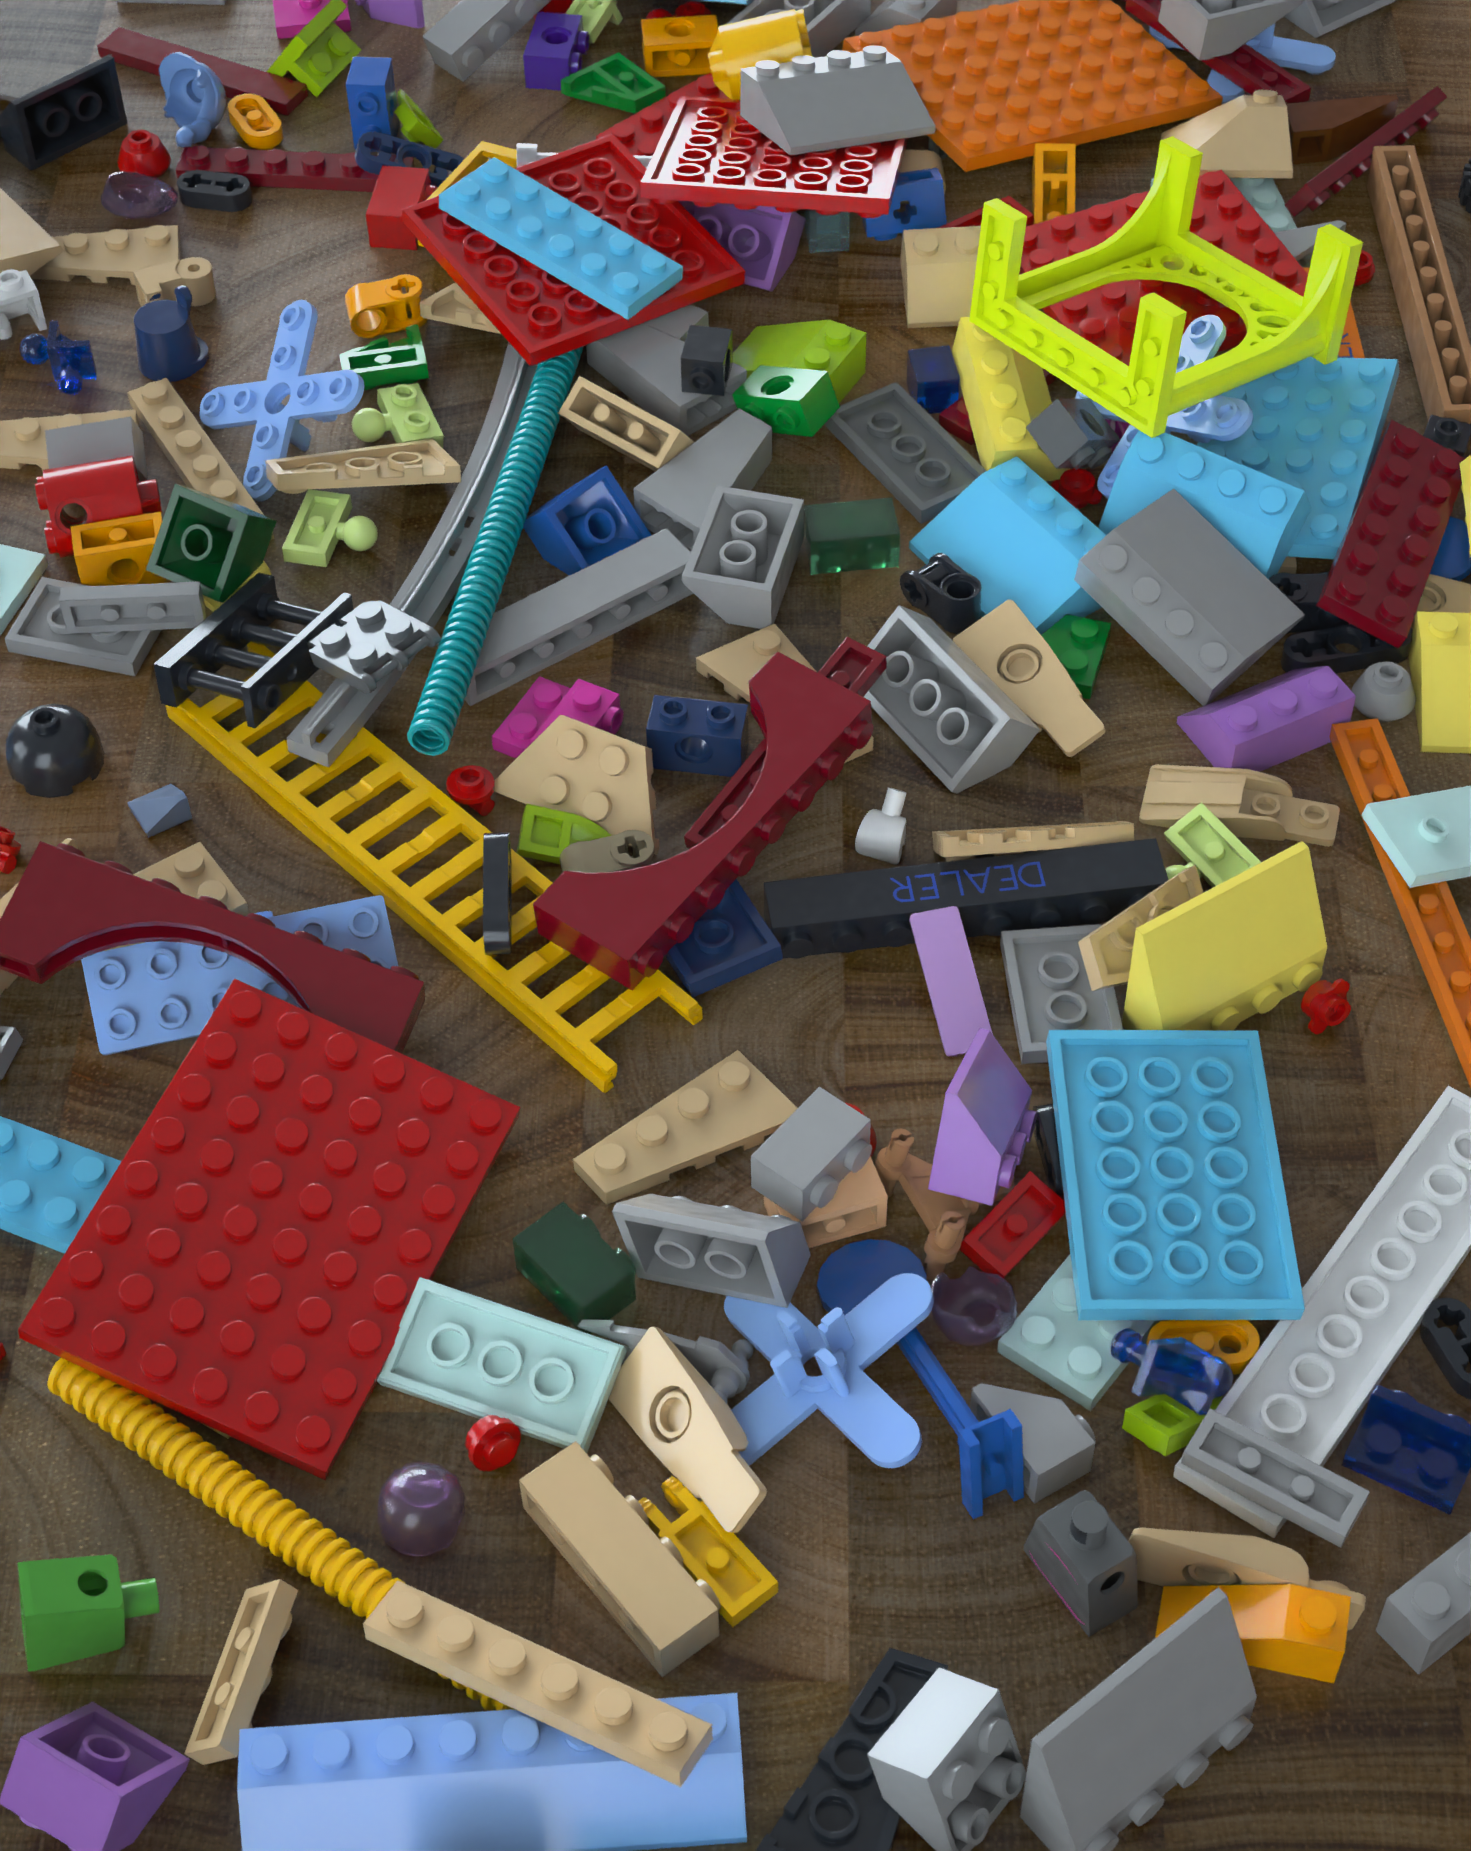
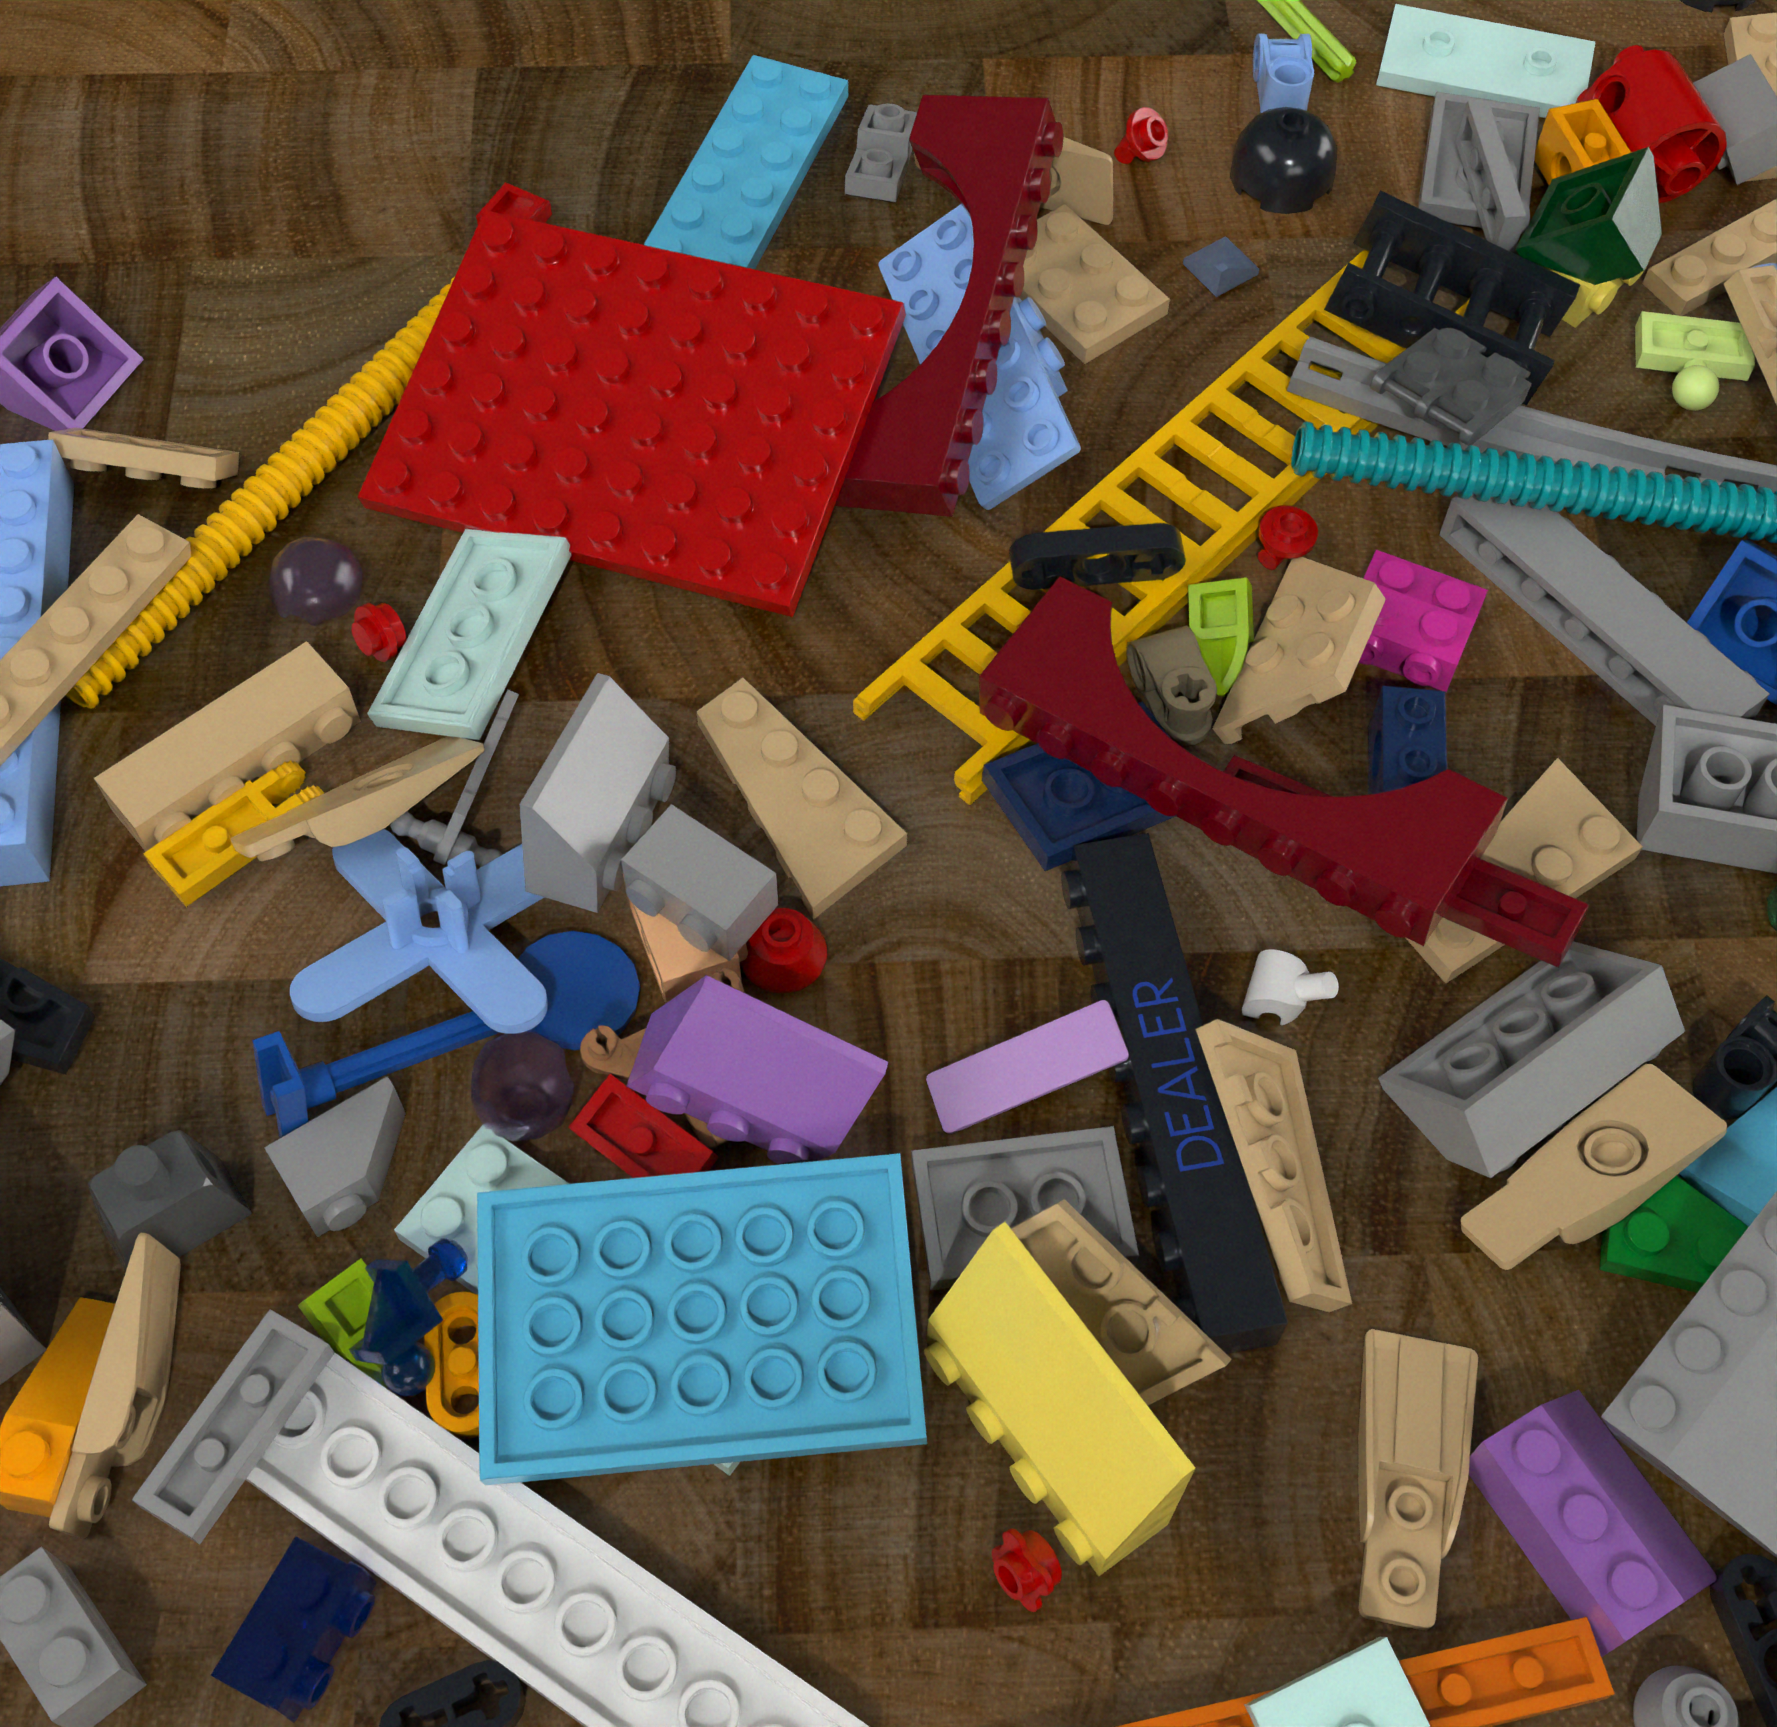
camera: 85 degrees right, 10 degrees up
(78, 1608) = (212, 329): bright green torso -> none
(575, 1266) = (559, 683): clear green brick -> none
(1209, 846) = (1288, 1420): yellowish green plate -> none

